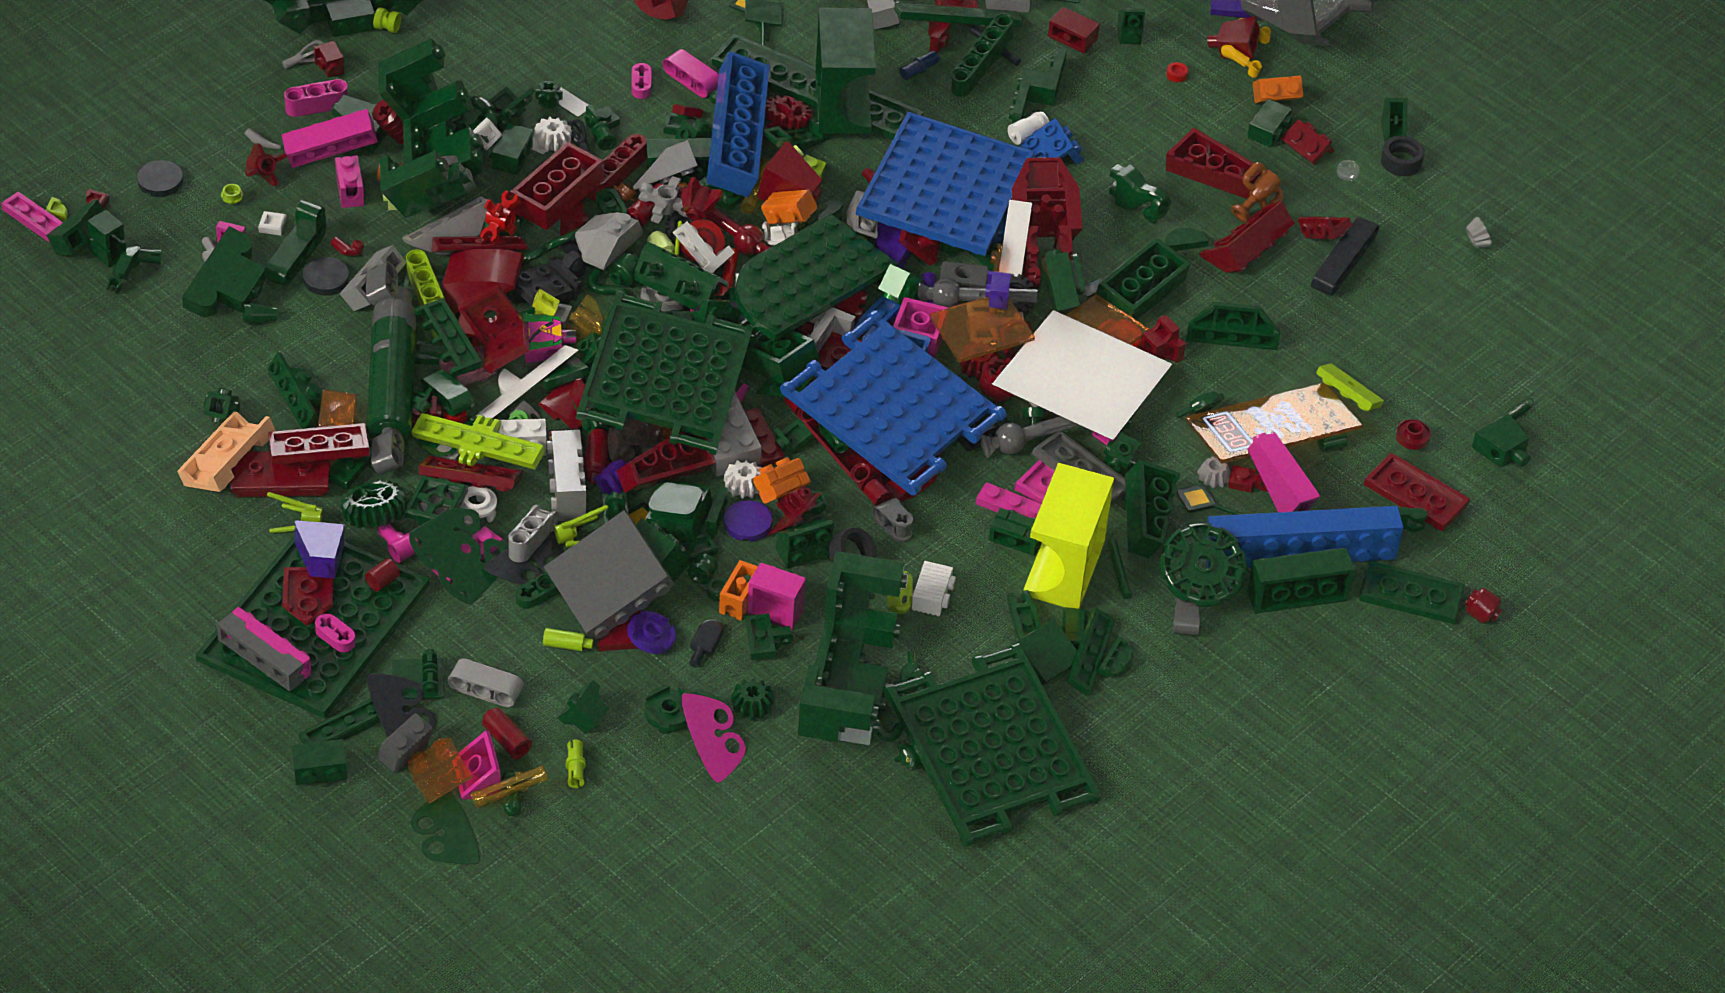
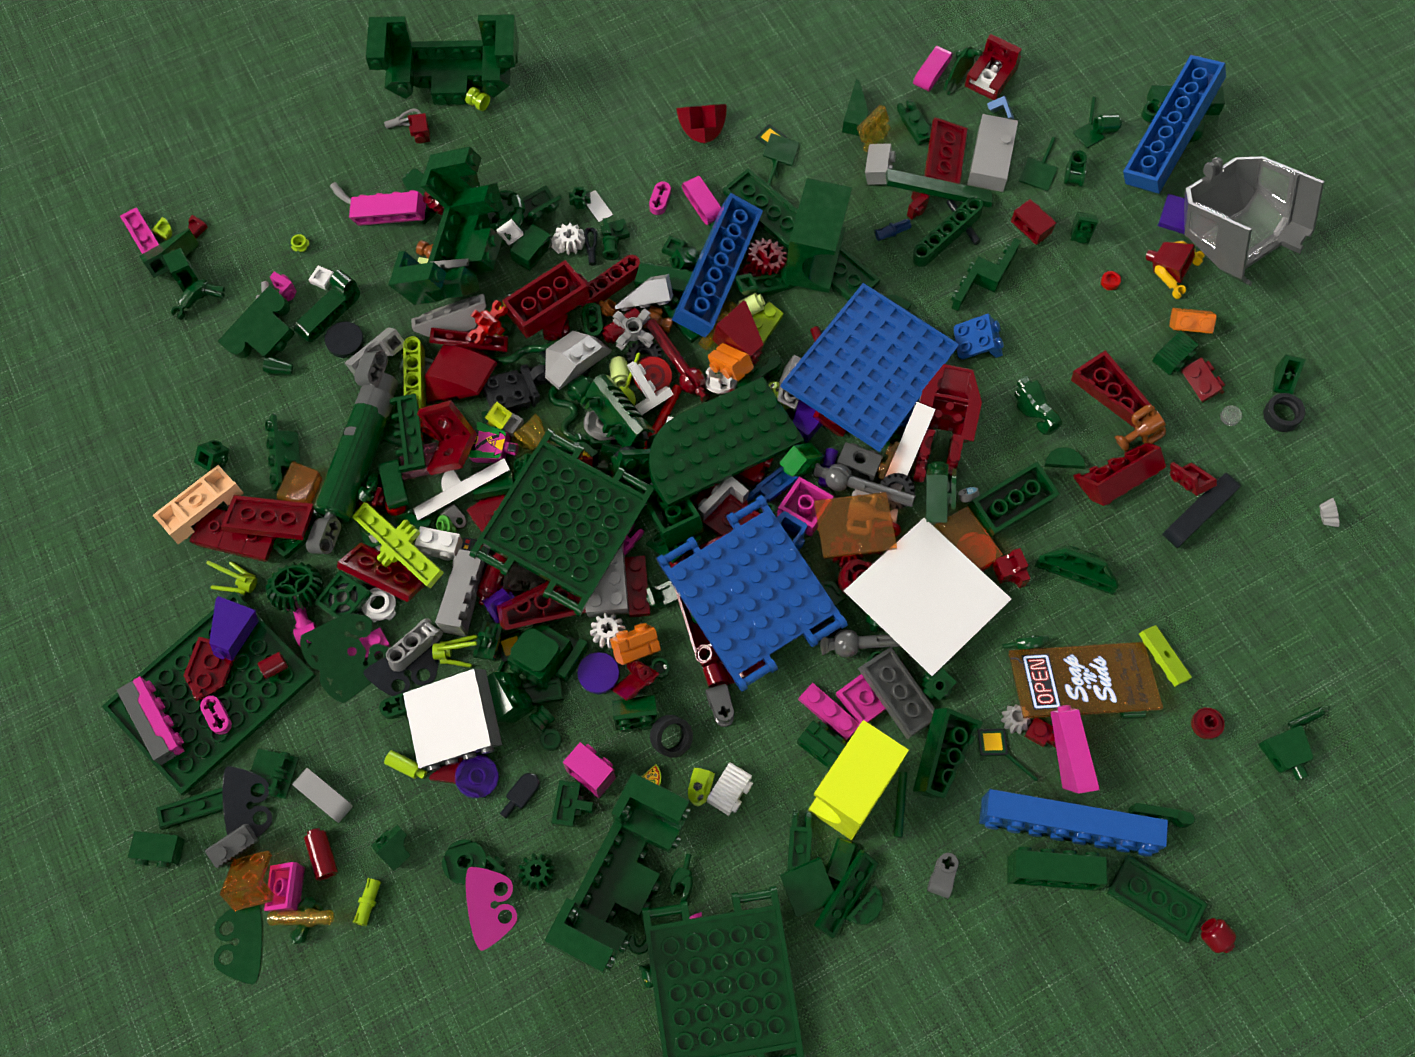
camera: 20 degrees right, 20 degrees up
(159, 178) = (251, 215): black tile -> none
(263, 164) = (329, 225): dark red brick -> none
(314, 97) = (395, 162): dark pink beam -> none
(348, 177) = (389, 249): dark pink brick -> none
(348, 250) = (375, 318): dark red arm -> none
(688, 111) = (680, 234): dark red tile -> none
(699, 199) = (655, 341): dark red brick -> none
(735, 592) = (559, 752): orange brick -> none
(998, 289) = (878, 493): dark purple brick -> none
(1026, 127) = (960, 314): white piece -> none
(1208, 578) = (970, 827): dark green plate -> none
(1416, 489) = (1193, 787): dark red plate -> none

